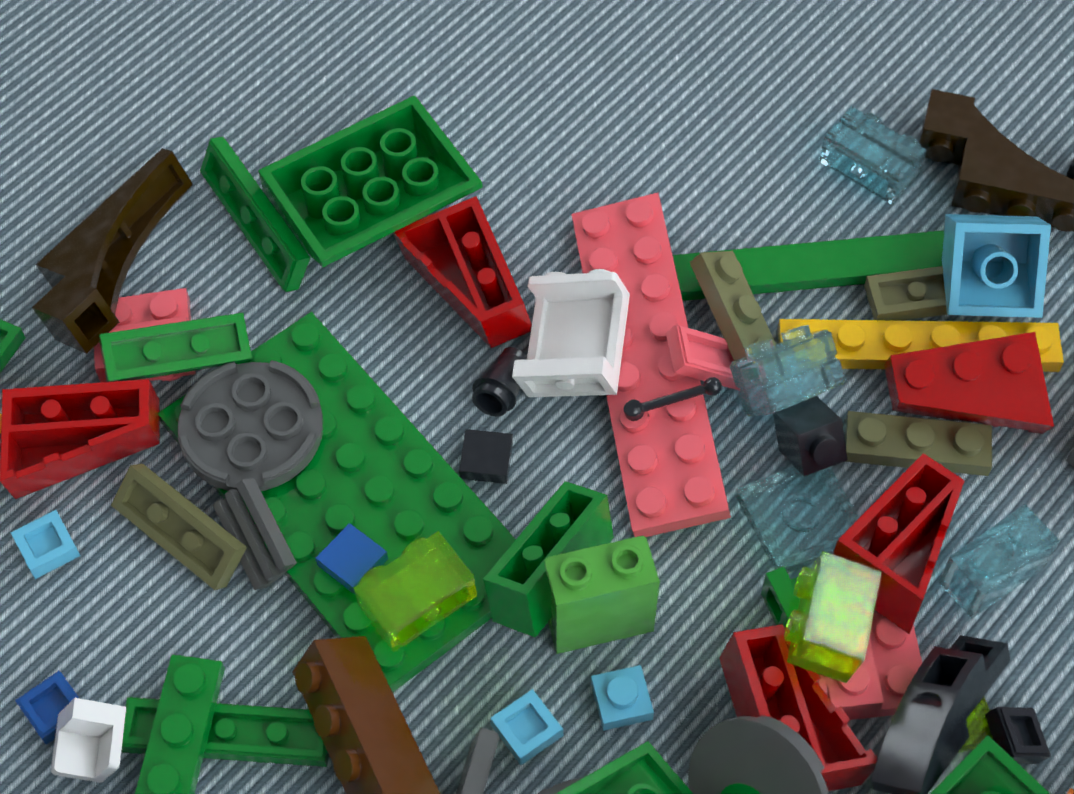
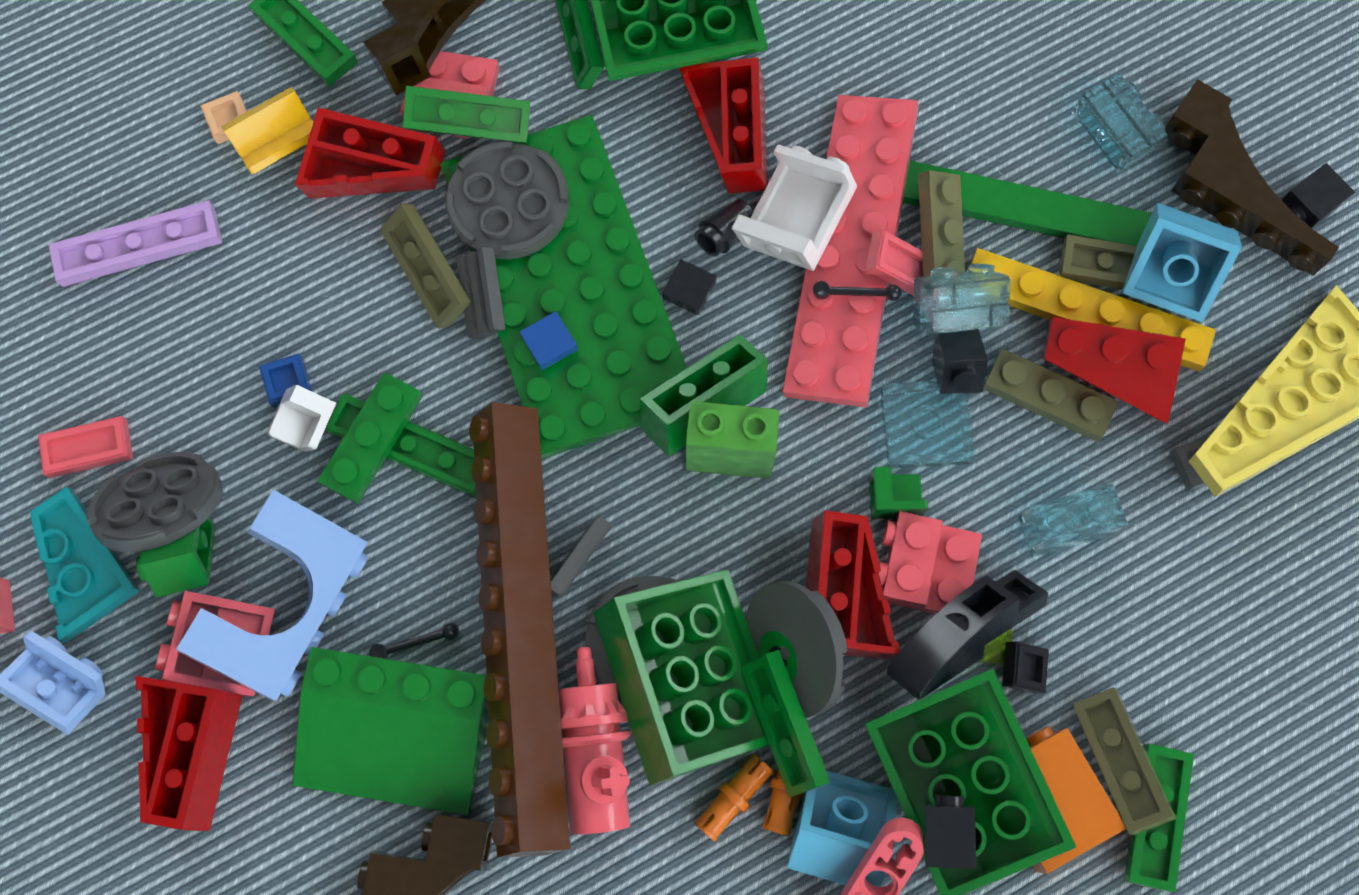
camera: 20 degrees right, 15 degrees up
(45, 544) = (319, 246): medium azure plate -> none
(415, 590) = (587, 385): clear neon green brick -> none
(526, 727) = (638, 523): medium azure plate -> none
(622, 697) = (723, 525): medium azure plate -> none
(833, 616) = (909, 526): clear neon green brick -> none
(904, 537) = (993, 478): red wedge -> none

